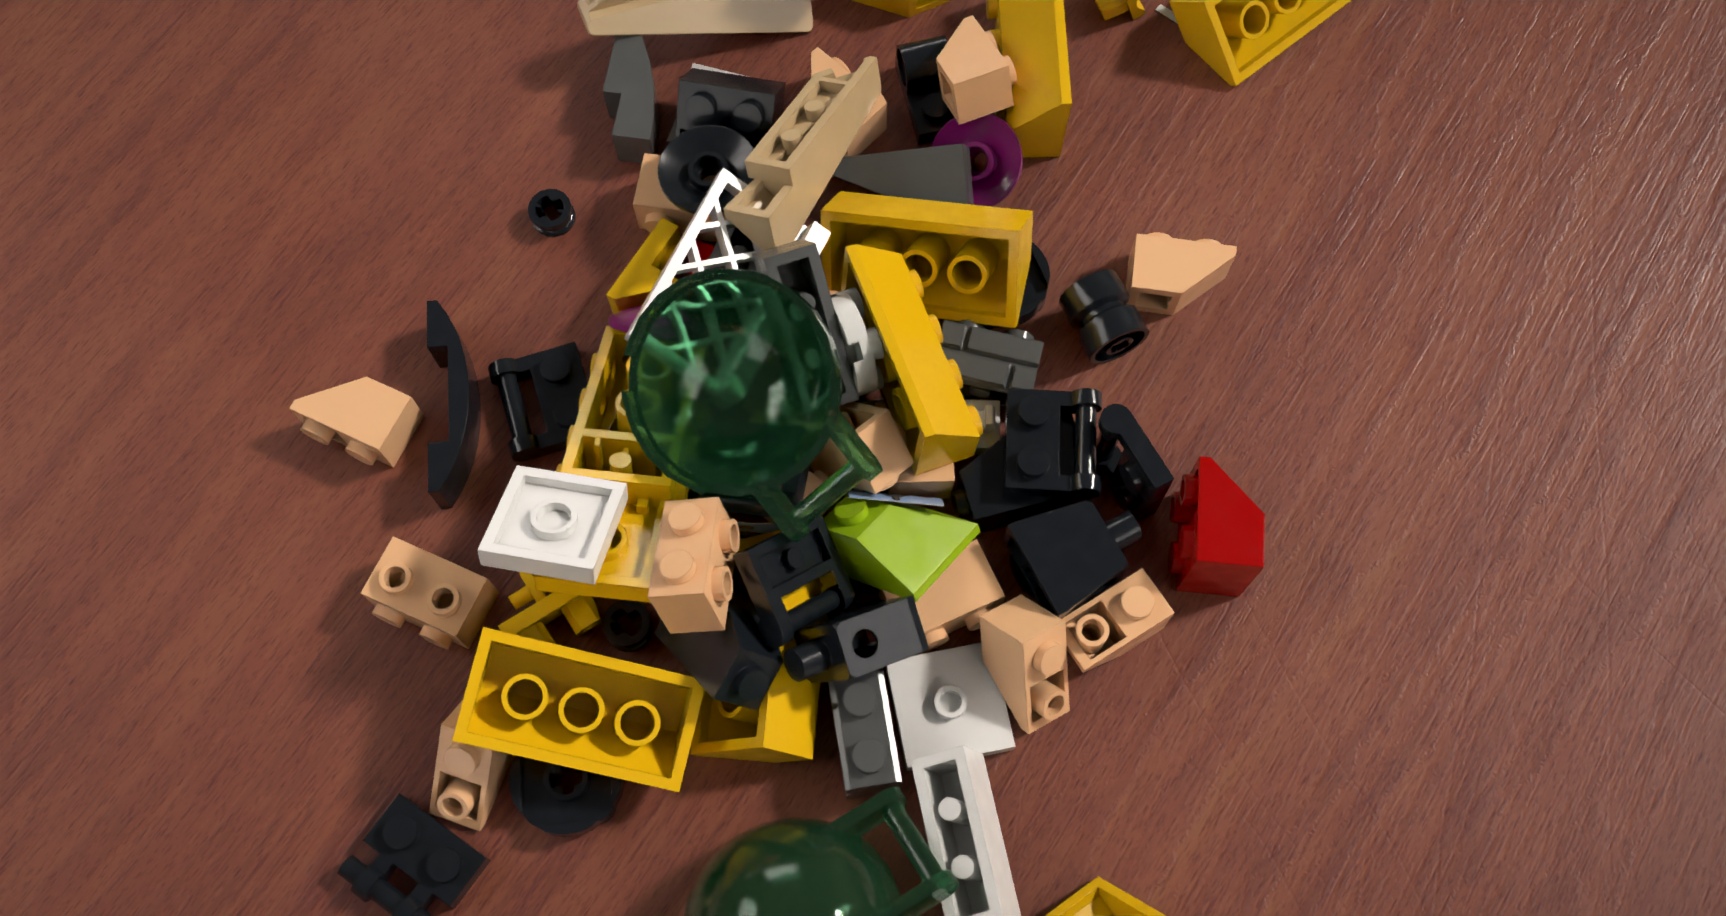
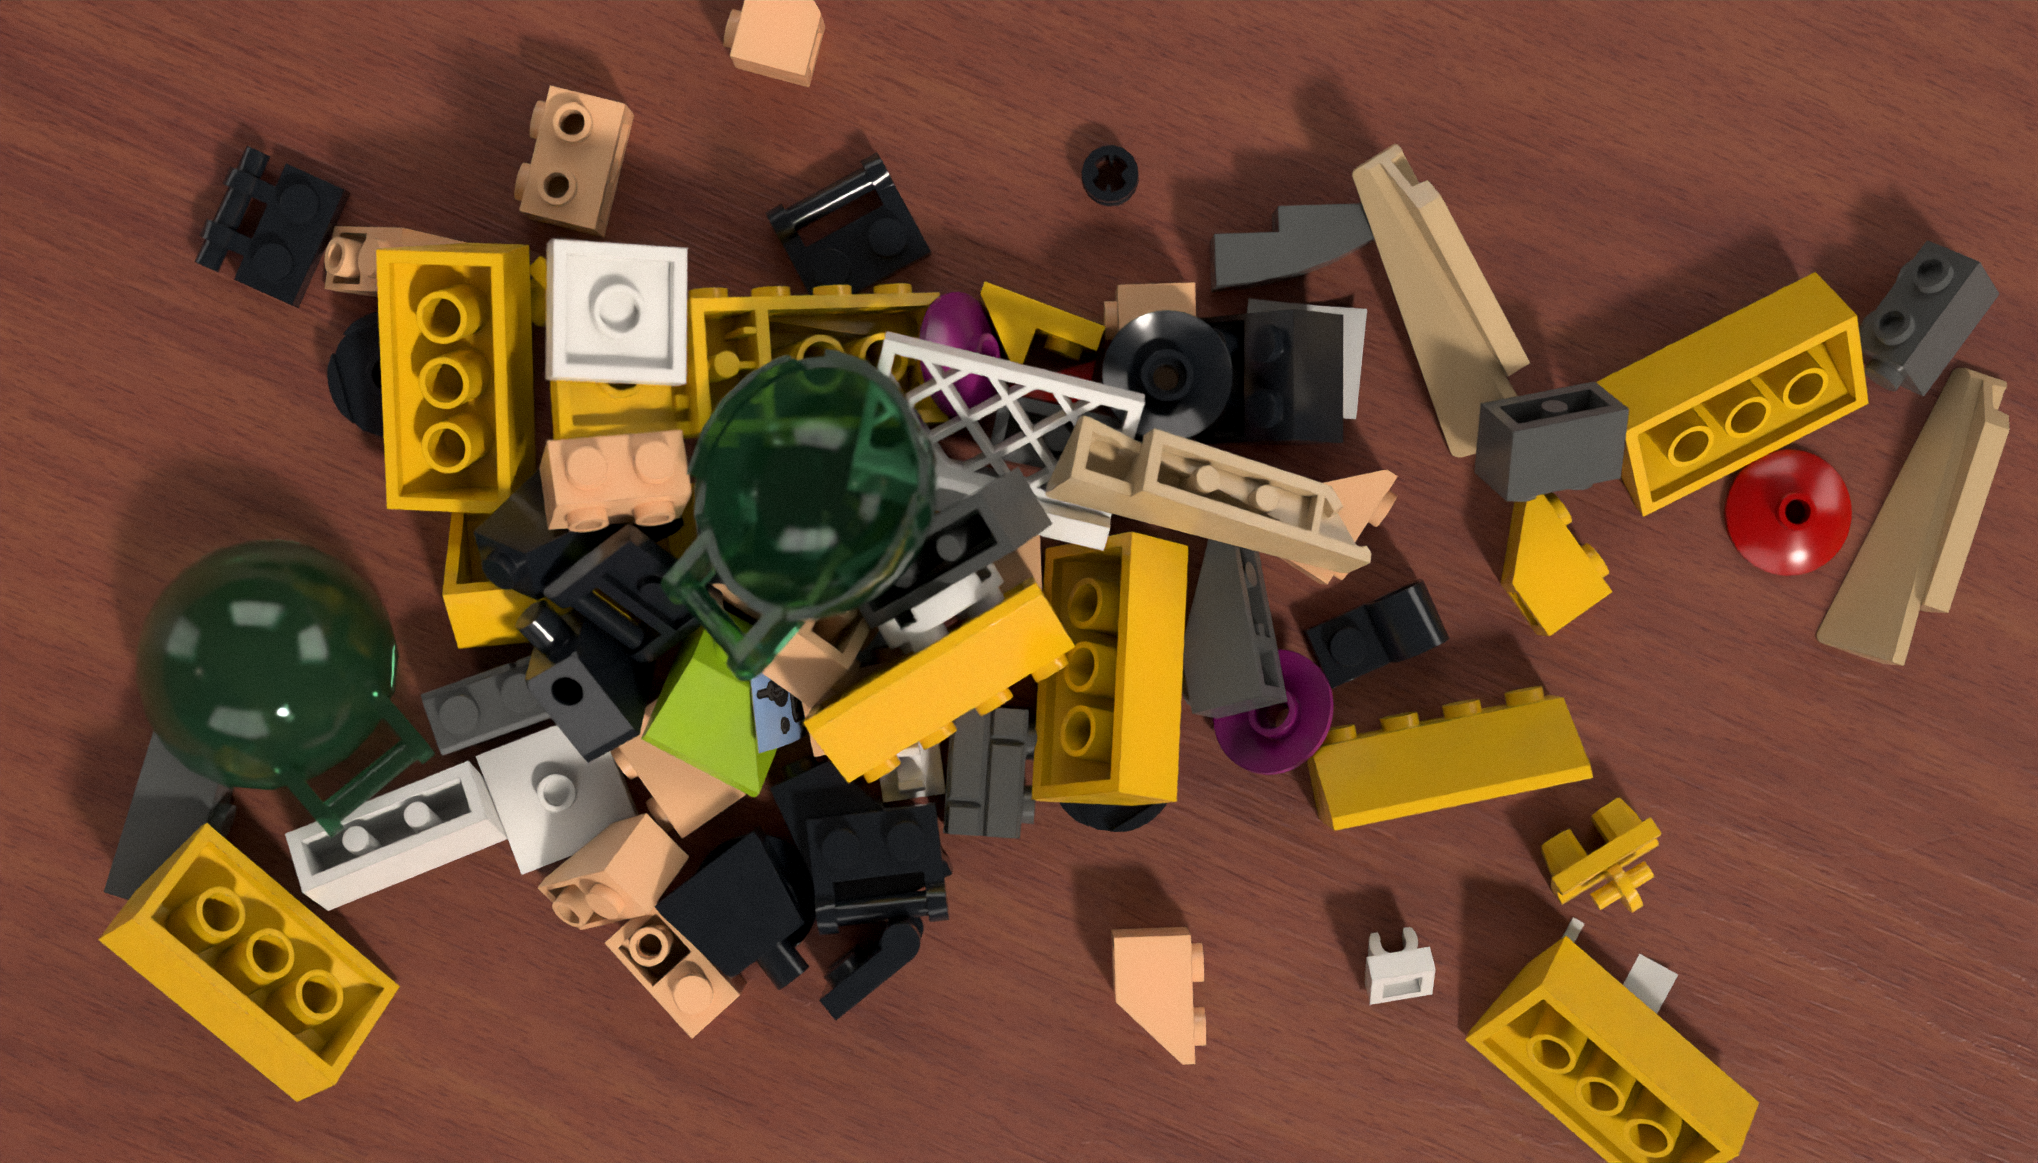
camera: 75 degrees right, 20 degrees up
(453, 459) = (739, 141): black slope -> none
(974, 73) = (1380, 689): light nougat slope -> none
(1100, 311) = (1075, 907): black wheel -> none
(1182, 113) = (1398, 973): none -> white tile
(1217, 535) = (798, 1076): red slope -> none

